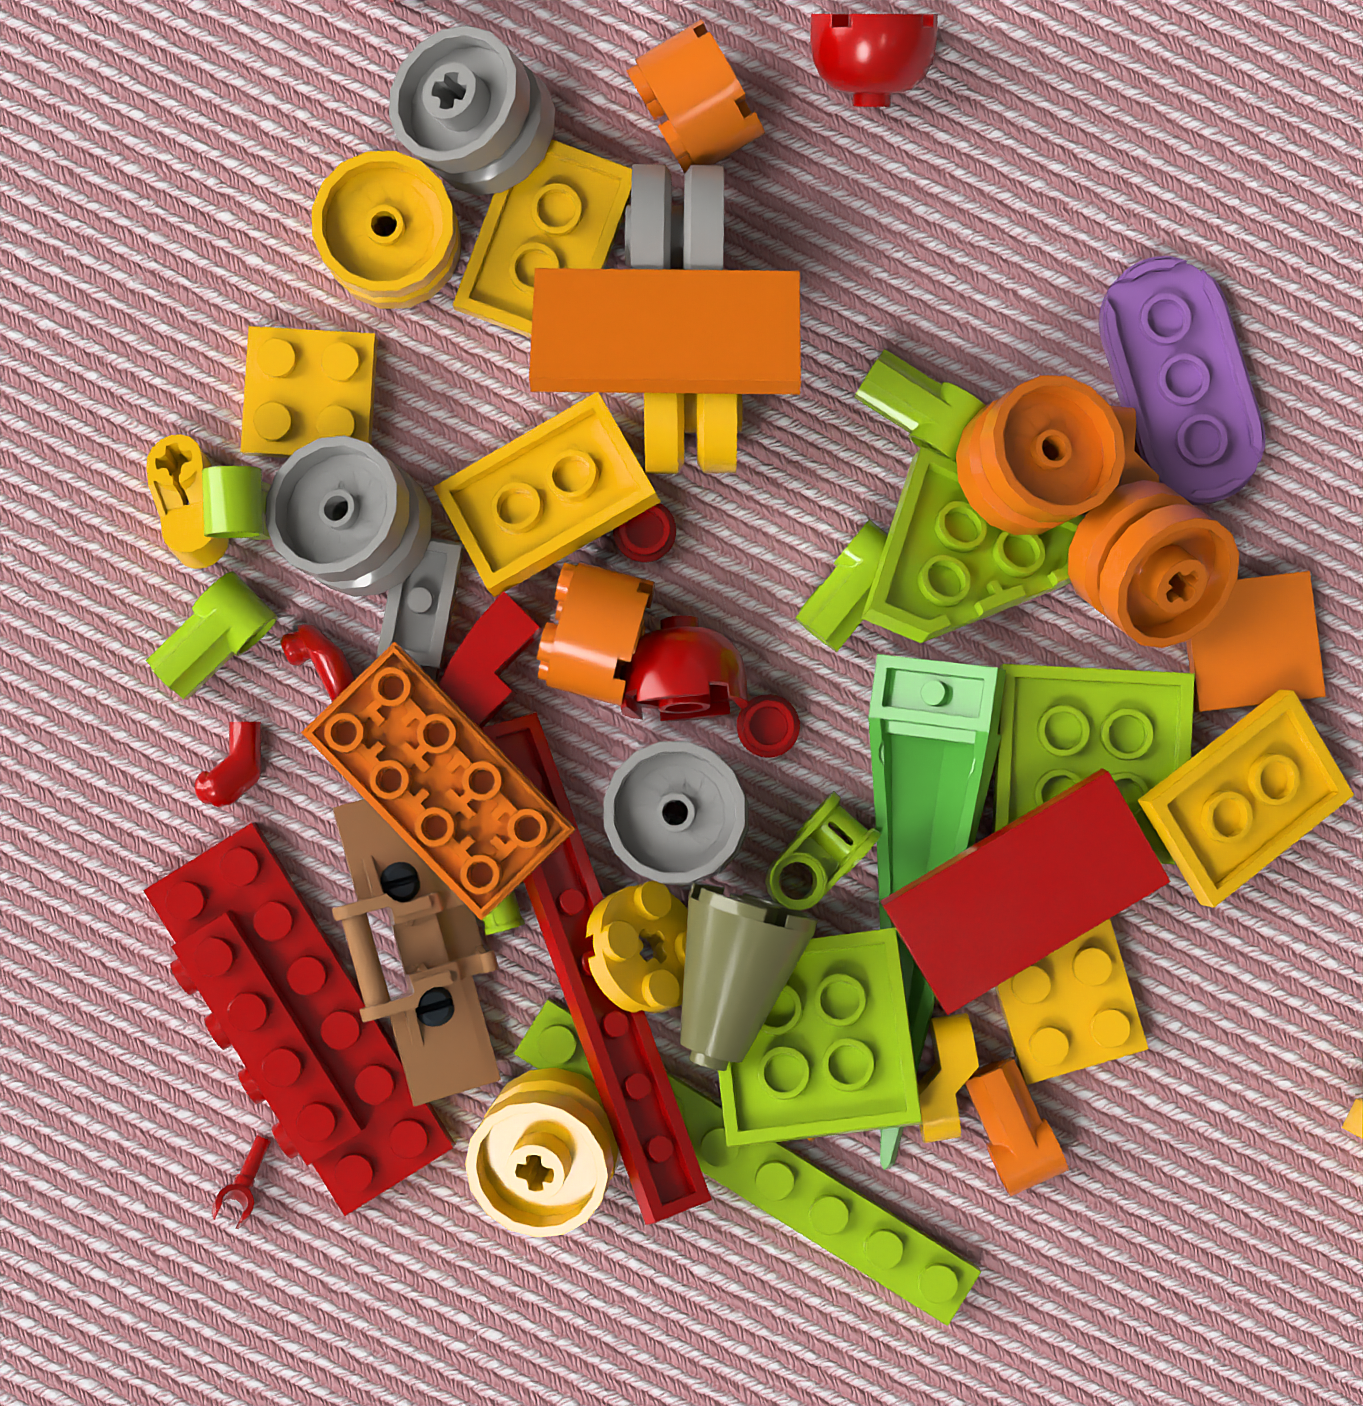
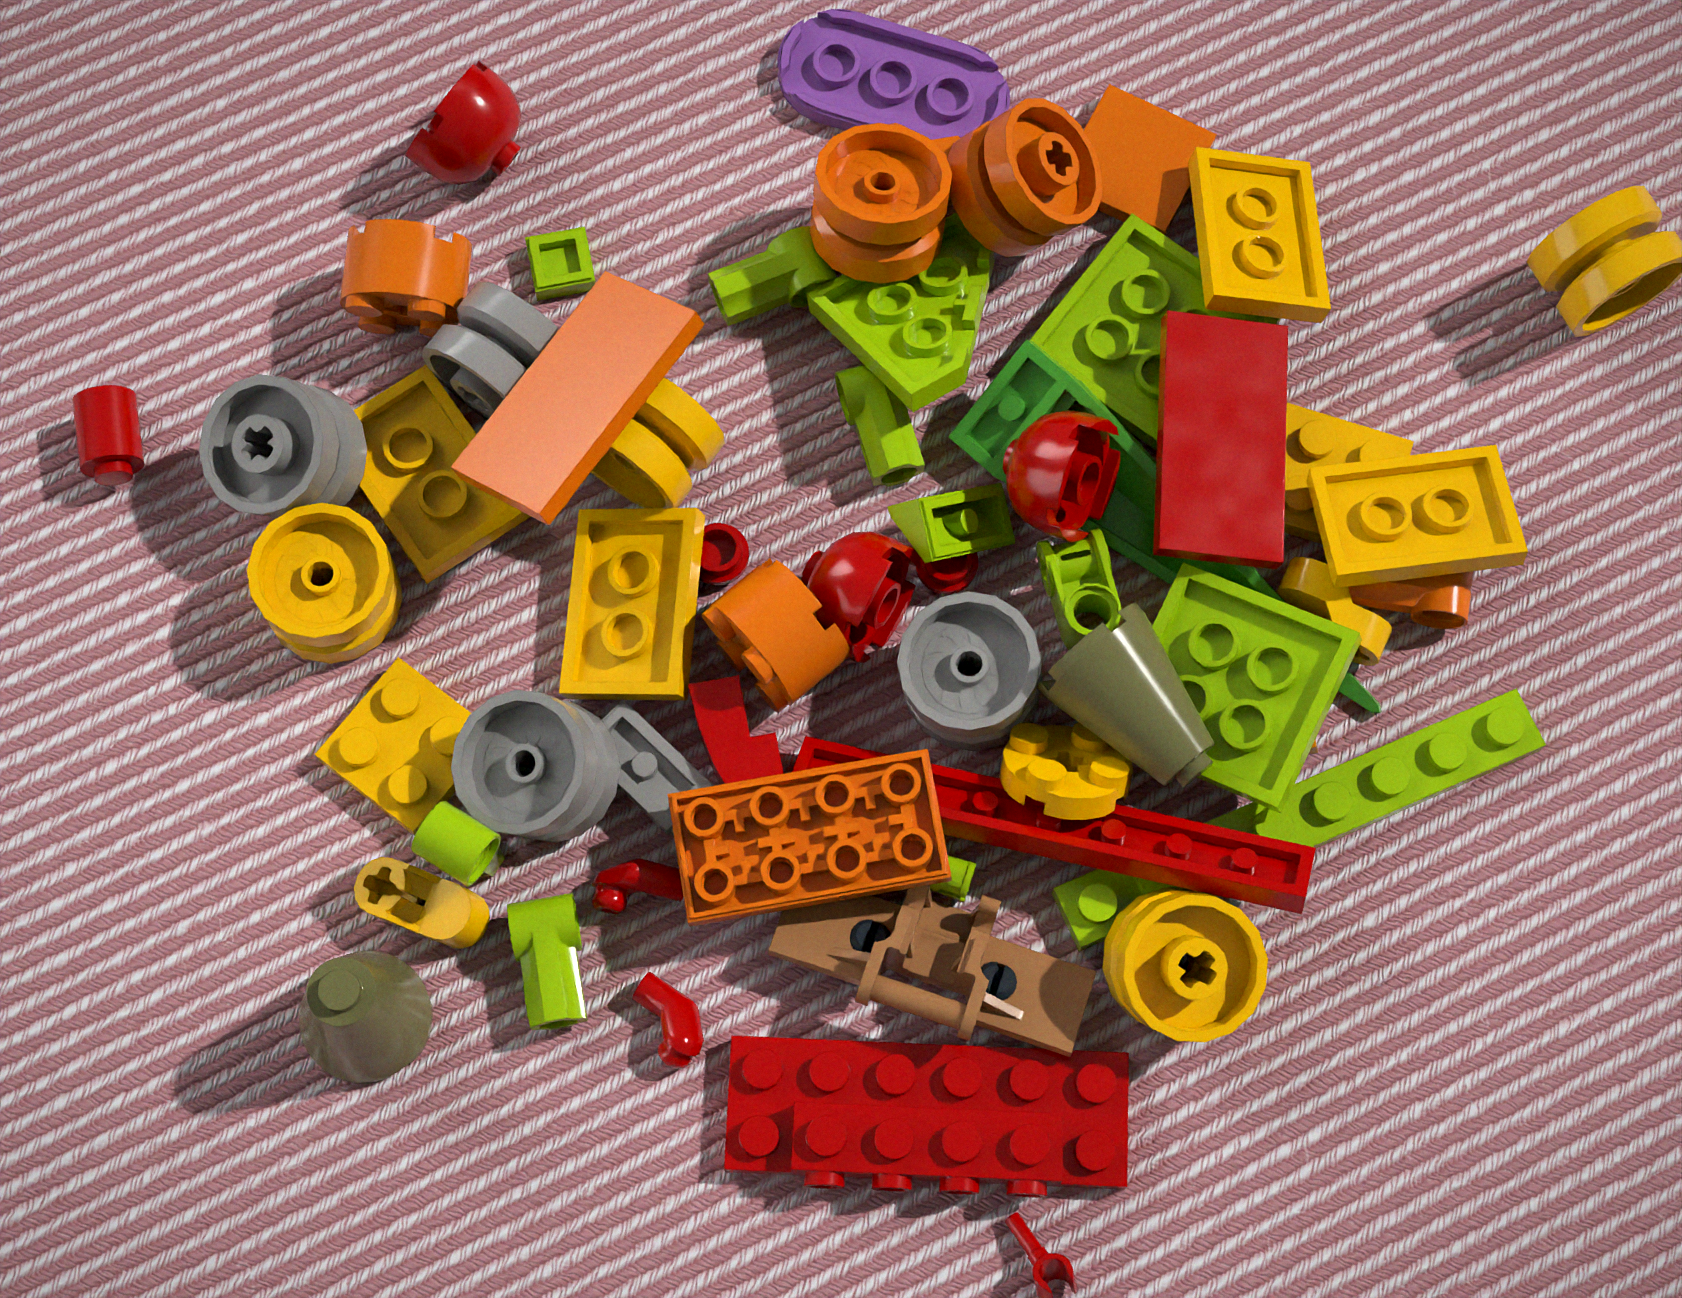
camera: 55 degrees left, 15 degrees down
(71, 520) = (365, 1016): none -> olive cone
(799, 712) = (955, 522): none -> lime slope
(813, 214) = (560, 263): none -> lime tile
(897, 775) = (1062, 472): none -> red cylinder
(1067, 1101) = (1416, 516): none -> yellow plate

